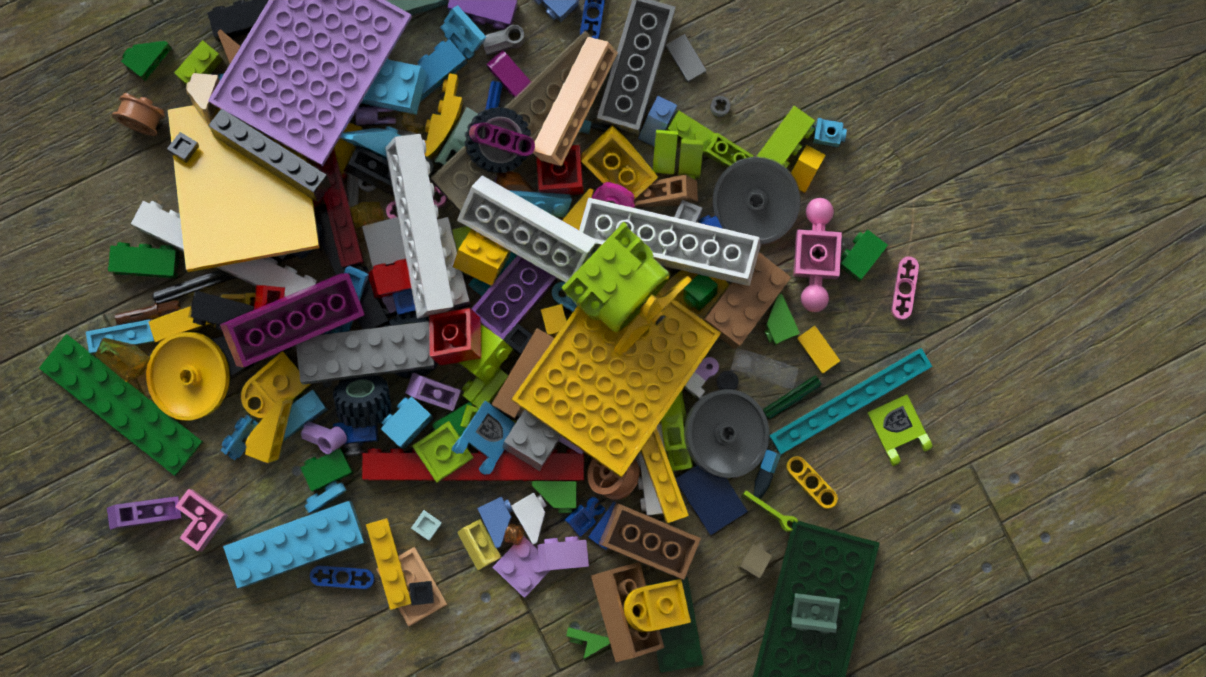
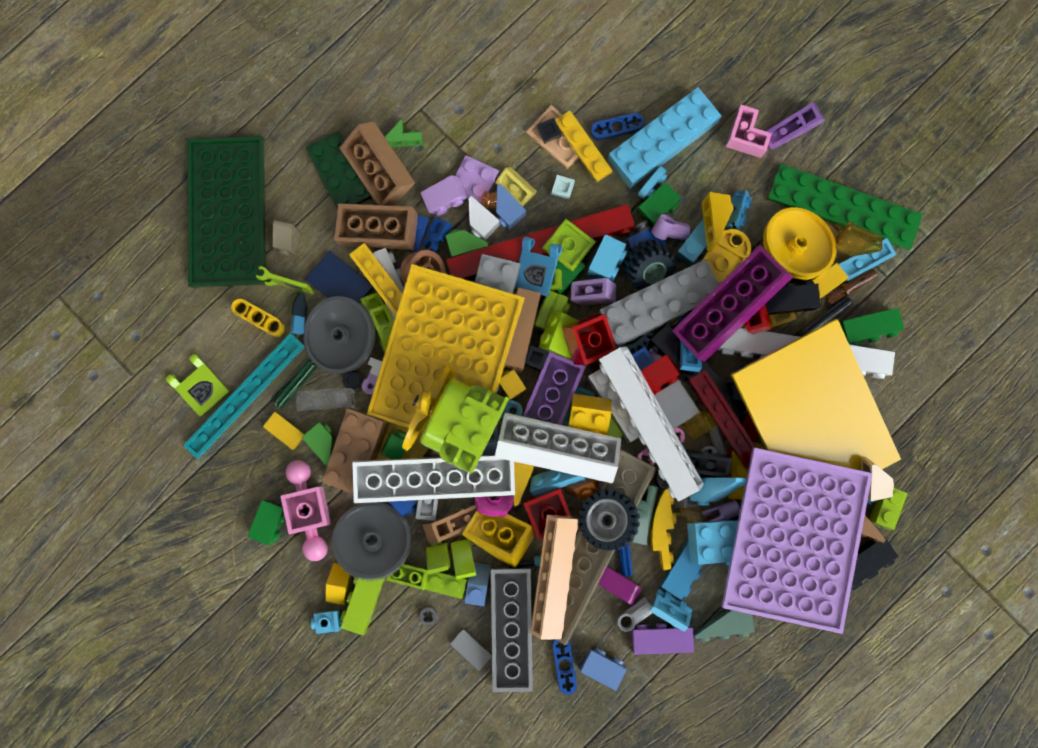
camera: 160 degrees right, 0 degrees up
(138, 114) = (923, 448): nougat wheel -> none
(145, 57) = (934, 500): green slope -> none
(183, 147) = (877, 427): plate -> none
(270, 155) = (801, 441): brick -> none
(512, 139) = (595, 519): magenta beam -> none
(659, 605) = (351, 176): yellow plate -> none
(815, 613) = (223, 210): sand green bracket -> none
(907, 304) = (219, 512): bright pink beam -> none

